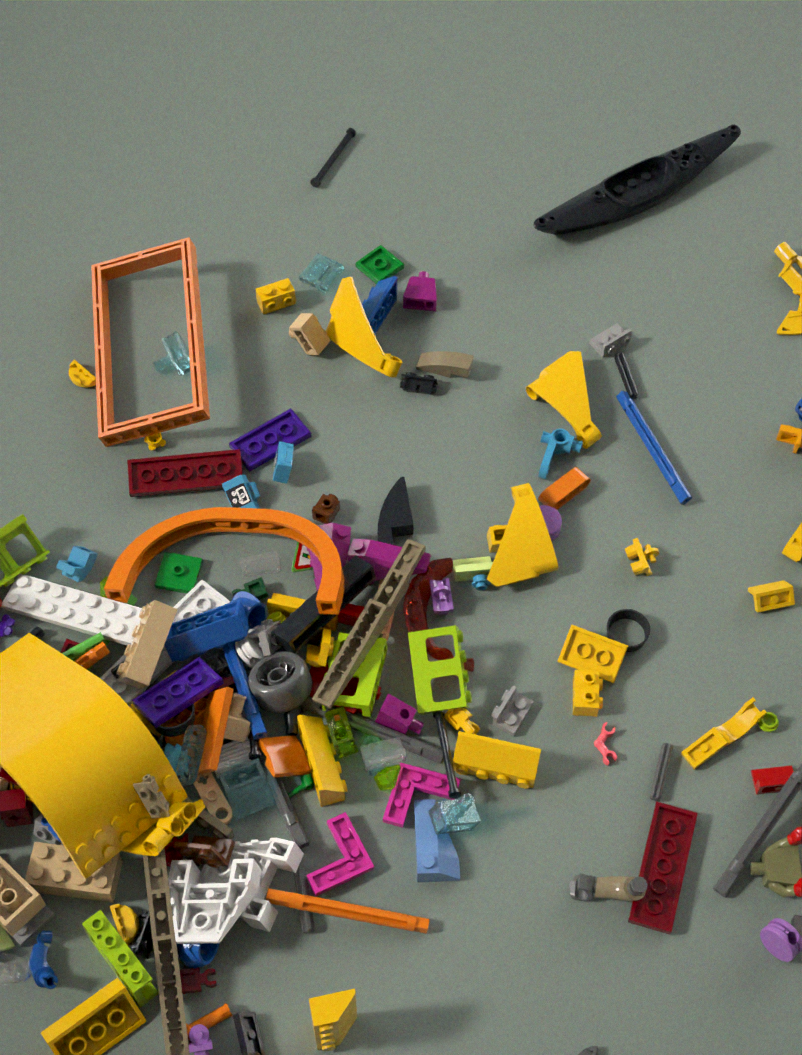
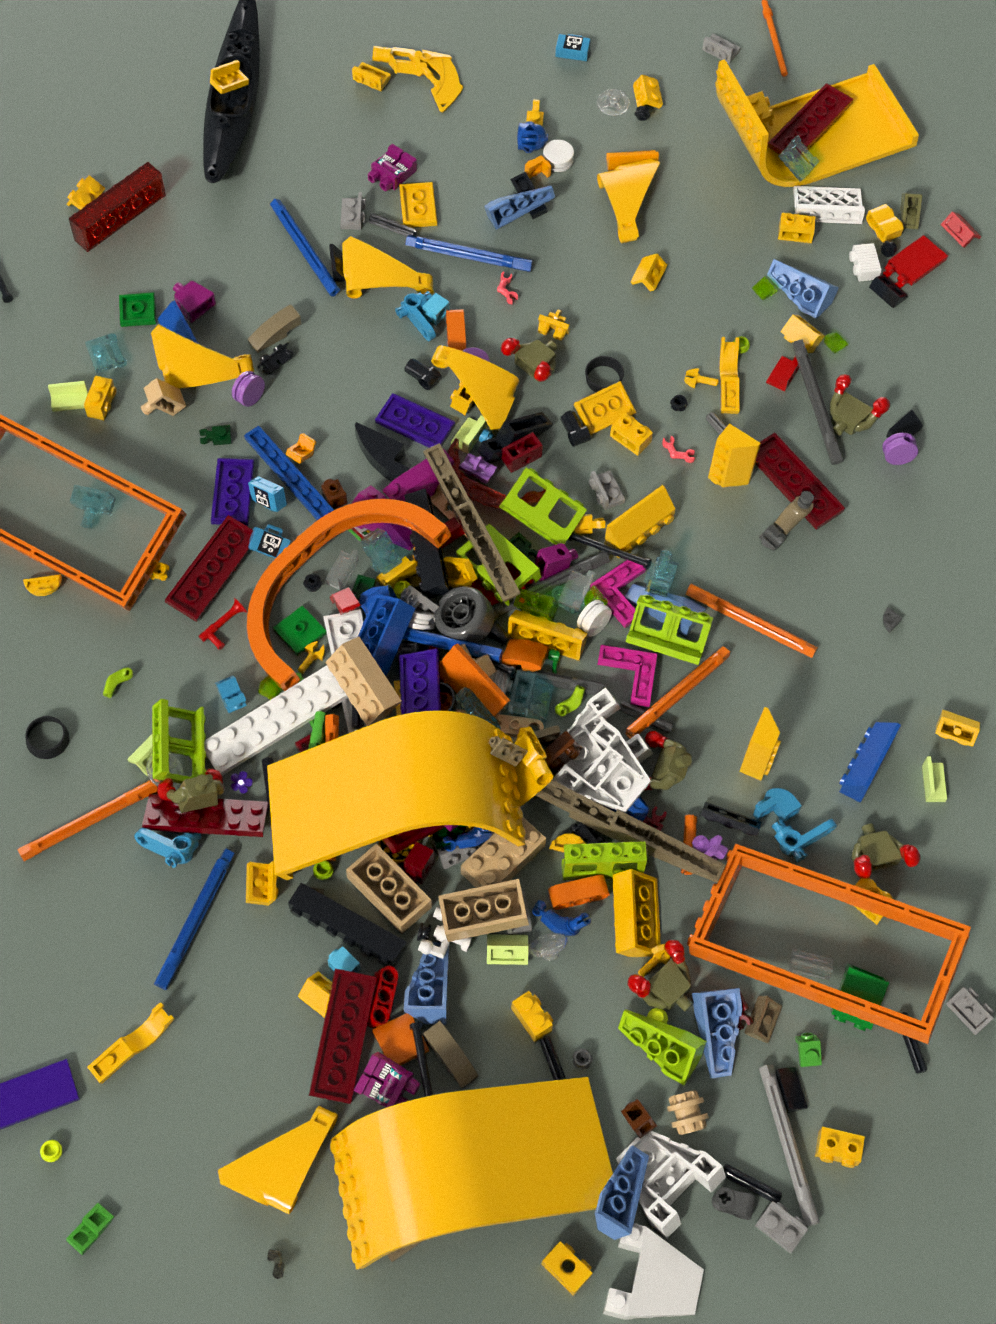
camera: 55 degrees left, 5 degrees up
(35, 478) = (115, 679): none -> lime arm
(82, 960) = (578, 892): none -> orange beam
(124, 512) = (209, 632): none -> red piece
(163, 597) = (310, 658): none -> yellow bar
(226, 583) = (345, 601): none -> slope
(230, 556) = (312, 587): none -> black plate
(259, 274) = (68, 395): none -> yellowish green panel
(265, 953) = (671, 763): none -> olive torso
(267, 827) = (571, 703): none -> lime arm
(293, 577) = (380, 551): none -> clear light blue brick
(313, 395) = (219, 435): none -> dark green plate
(318, 464) = (288, 473): none -> blue plate
(347, 459) = (302, 449): none -> light orange bracket
(365, 787) = (594, 618): none -> white head
(369, 382) = (248, 388): none -> medium lavender head
(393, 681) = (523, 545): none -> dark green plate
(393, 864) = (666, 640): none -> lime window
(449, 521) = (414, 421): none -> dark purple tile
(452, 164) = (87, 191): none -> yellow bracket
(456, 187) = (117, 206): none -> clear red brick
(471, 882) = (750, 620): none -> orange piece
(485, 618) = (522, 452): none -> dark red brick
(498, 602) = (511, 432): none -> black slope
(499, 497) = (426, 376): none -> black piece
(544, 331) = (305, 247): none -> blue piece
(549, 647) = (576, 432): none -> black piece
(550, 357) = (337, 263): none -> black slope
(570, 458) = (435, 309): none -> medium azure brick
(593, 563) = (532, 357): none -> olive torso
(621, 789) = (733, 458): none -> yellow slope
(644, 493) = (501, 289): none -> coral arm
(645, 170) = (228, 77): none -> yellow bracket
(656, 706) = (678, 399): none -> black plate
(666, 379) = (418, 204): none -> yellow tile
(680, 337) = (392, 168): none -> magenta hips
(702, 703) = (698, 378): none -> yellow bar
(726, 444) = (514, 206): none -> medium blue wedge
(756, 261) = (370, 76): none -> yellow bracket
(756, 450) = (523, 183): none -> black plate

